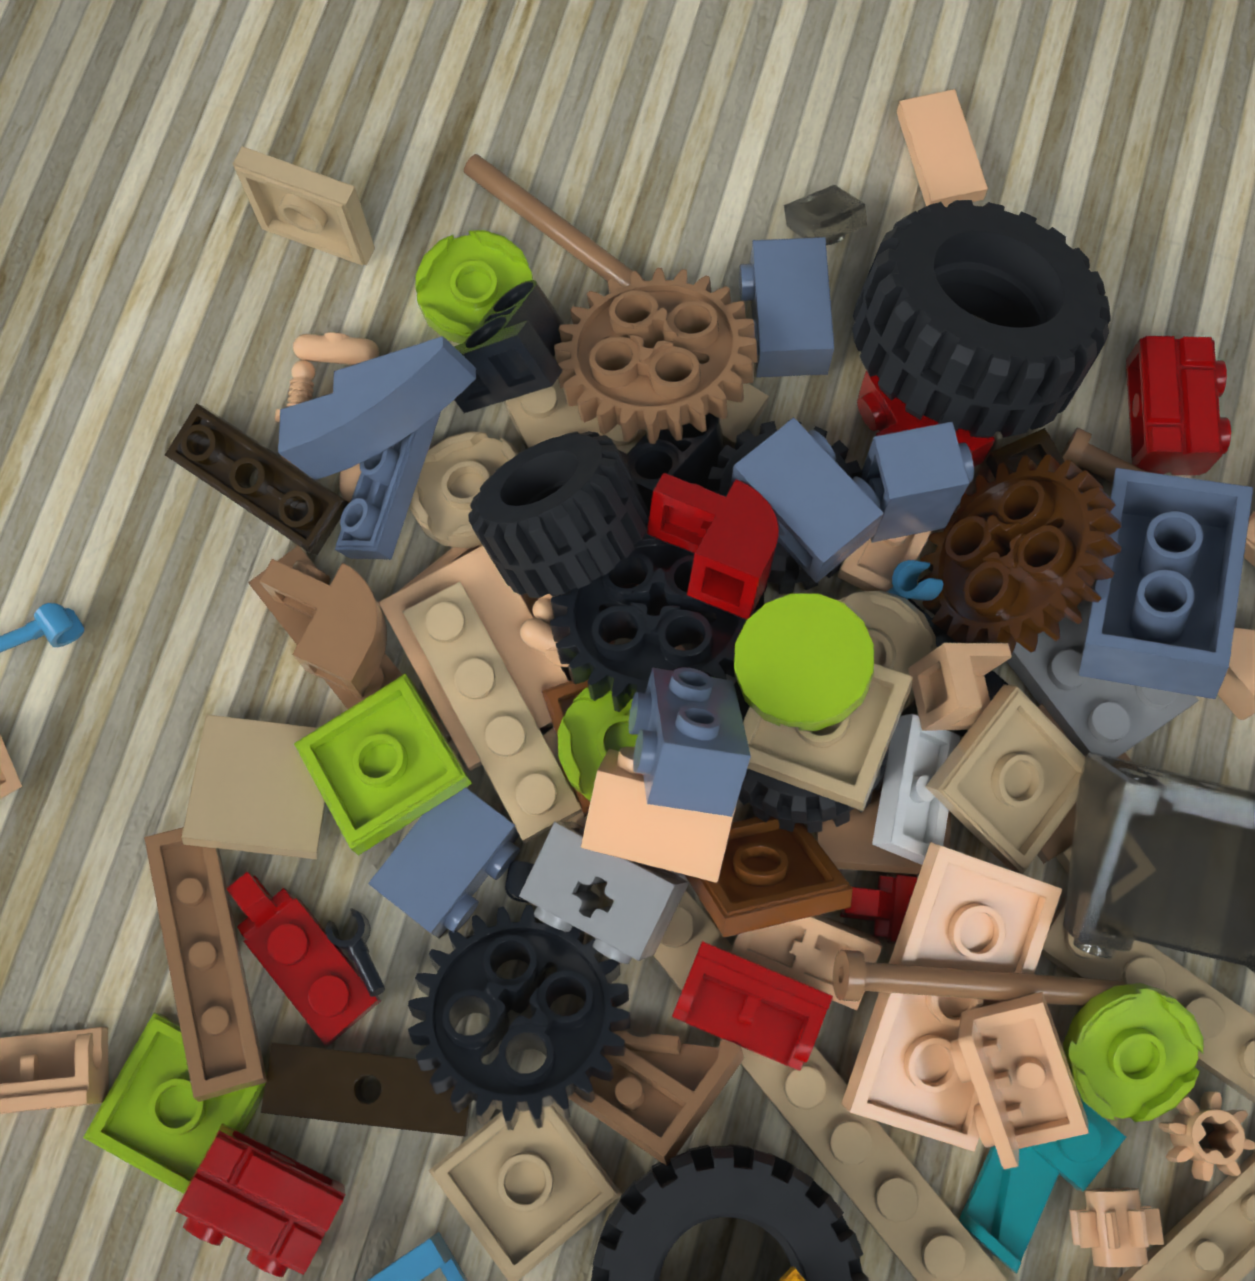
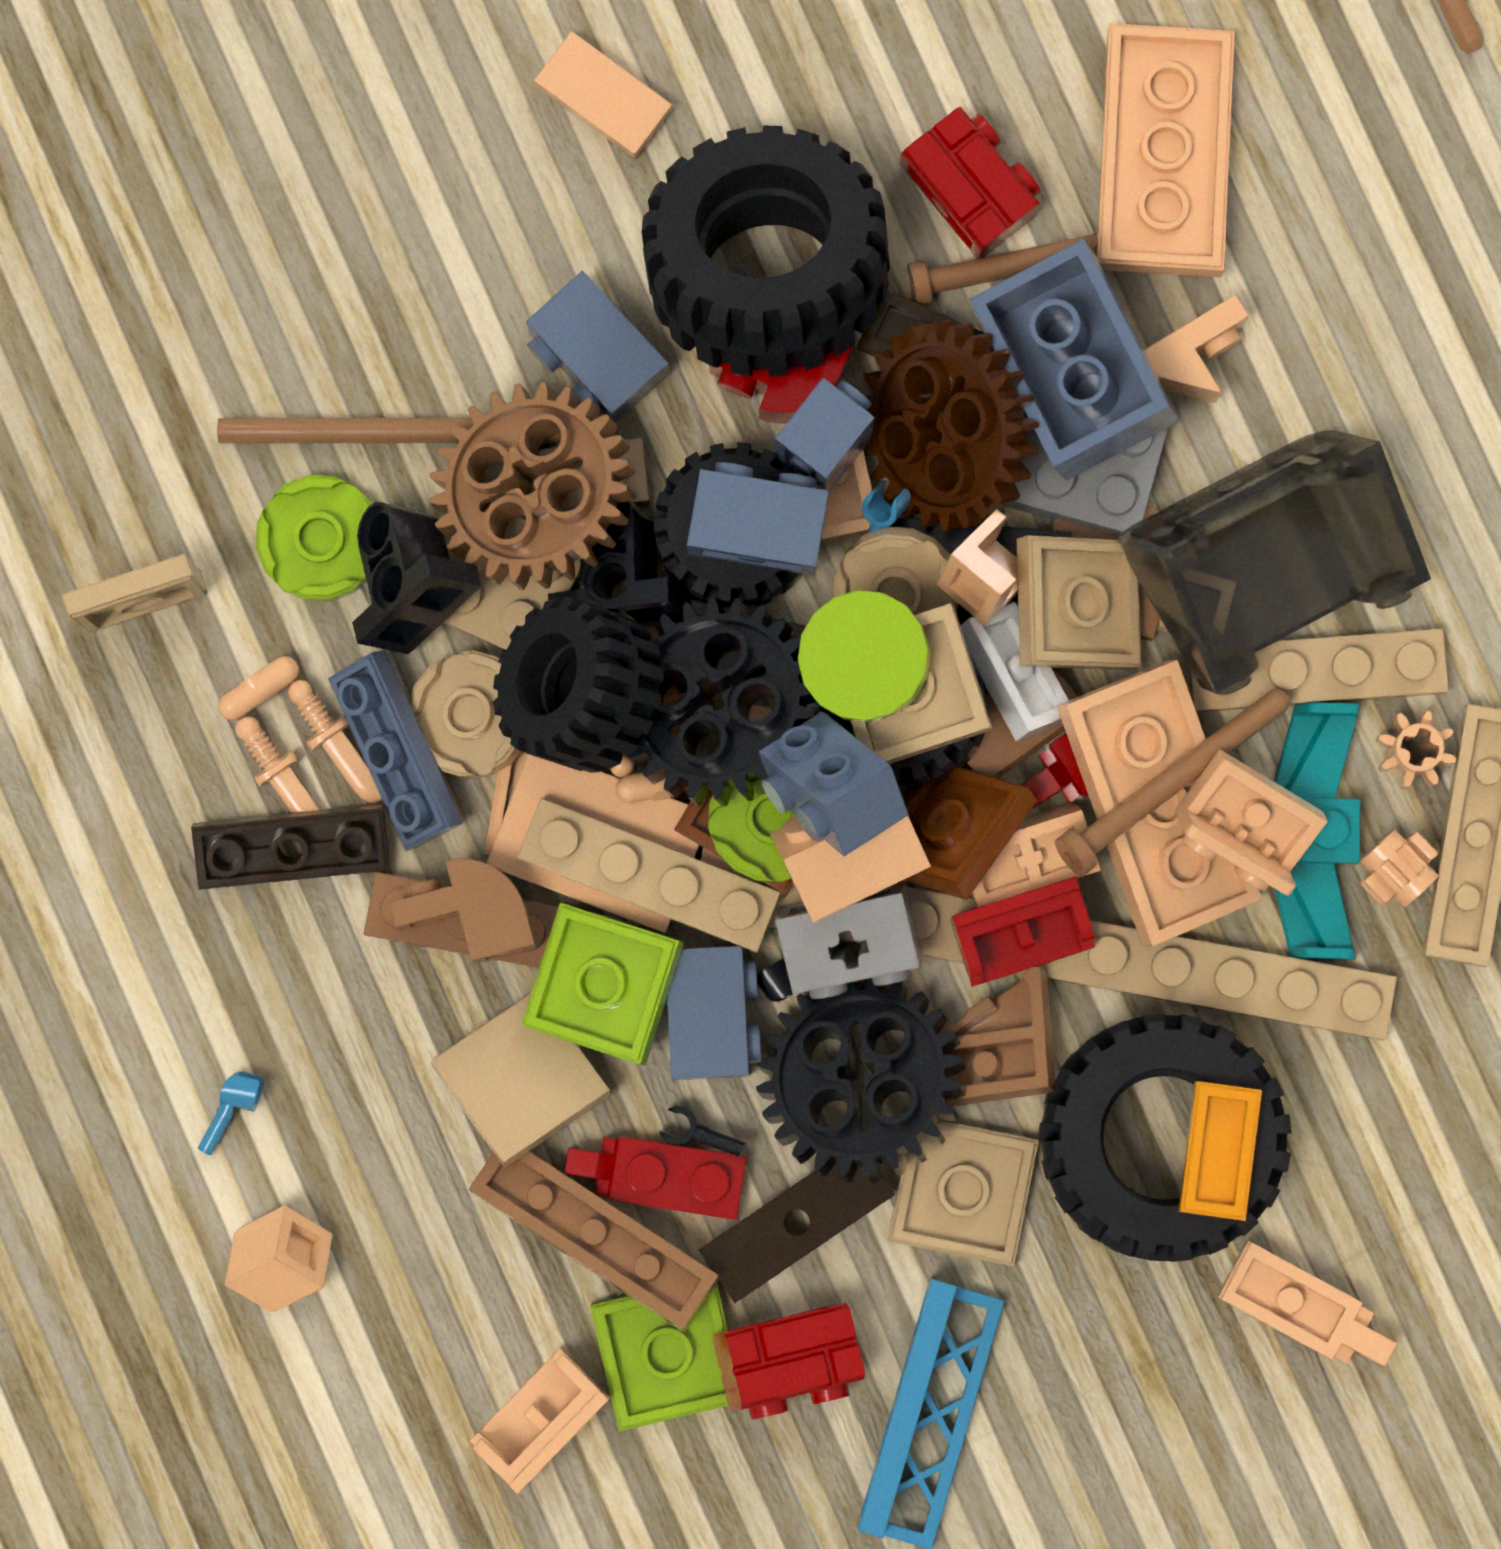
camera: 40 degrees left, 10 degrees up
(372, 407) = (351, 720): sand blue slope -> none
(728, 534) = (728, 597): red brick -> none
(826, 214) = (559, 240): clear smoke plate -> none
(1133, 1052) = (1317, 735): lime tile -> none

